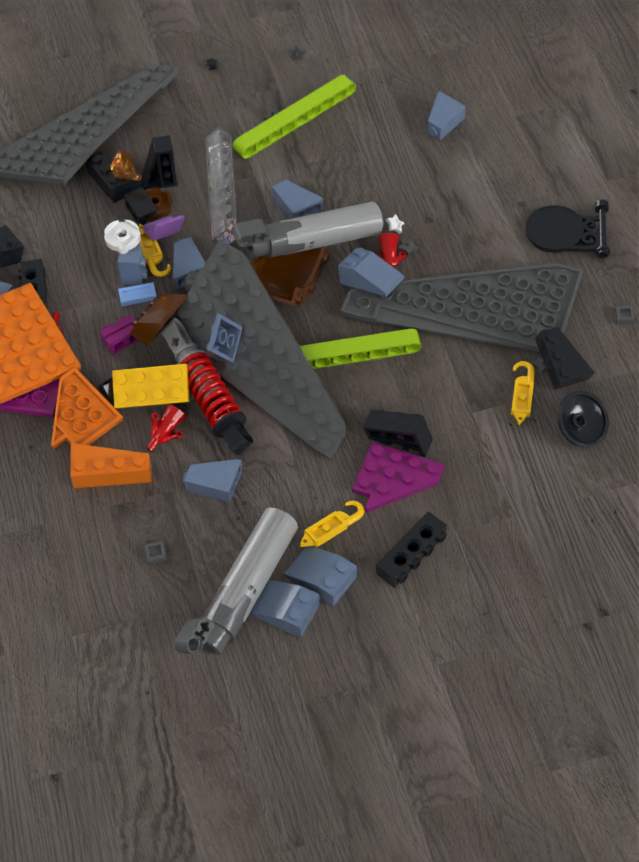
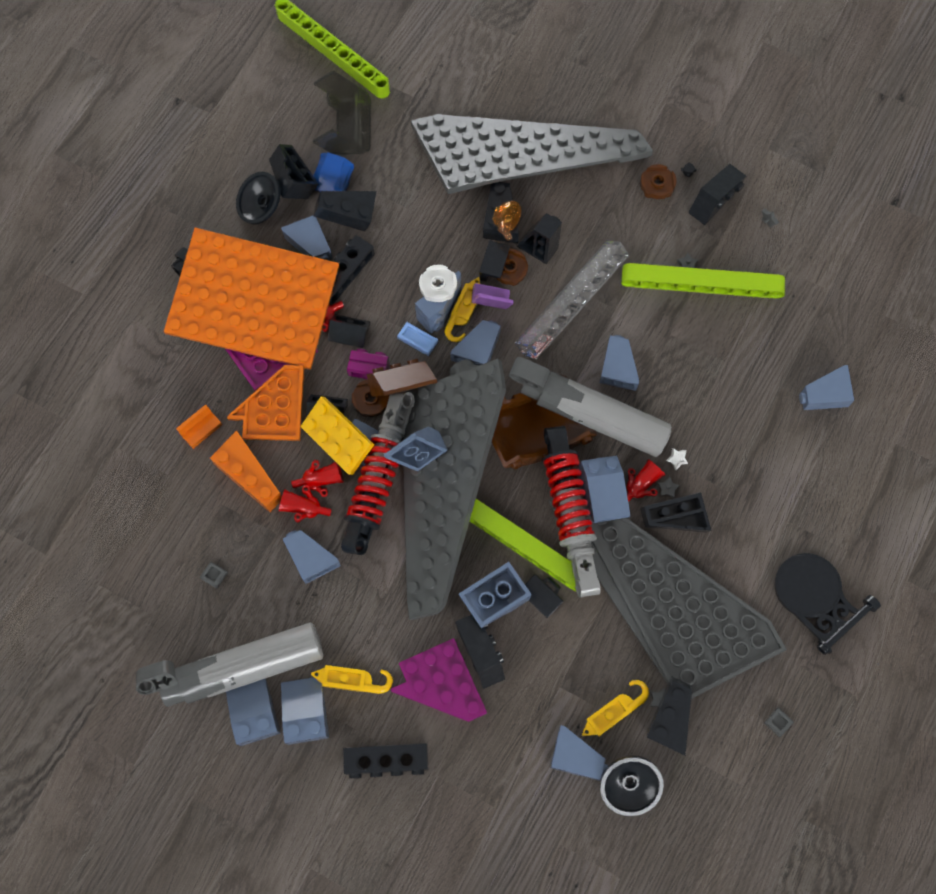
camera: 45 degrees right, 15 degrees up
(35, 471) = (199, 426): none -> orange panel
(81, 327) = (348, 330): none -> black panel
(138, 360) = (368, 408): none -> reddish brown plate
(174, 454) = (302, 506): none -> red piece
(203, 90) = (656, 191): none -> reddish brown plate
(248, 62) = (717, 193): none -> black wedge
(372, 386) = (495, 595): none -> sand blue slope
(381, 306) = (569, 509): none -> piece
(399, 371) = (543, 596): none -> black piece
(433, 250) = (681, 514): none -> black wedge
(529, 437) = (576, 756): none -> sand blue slope

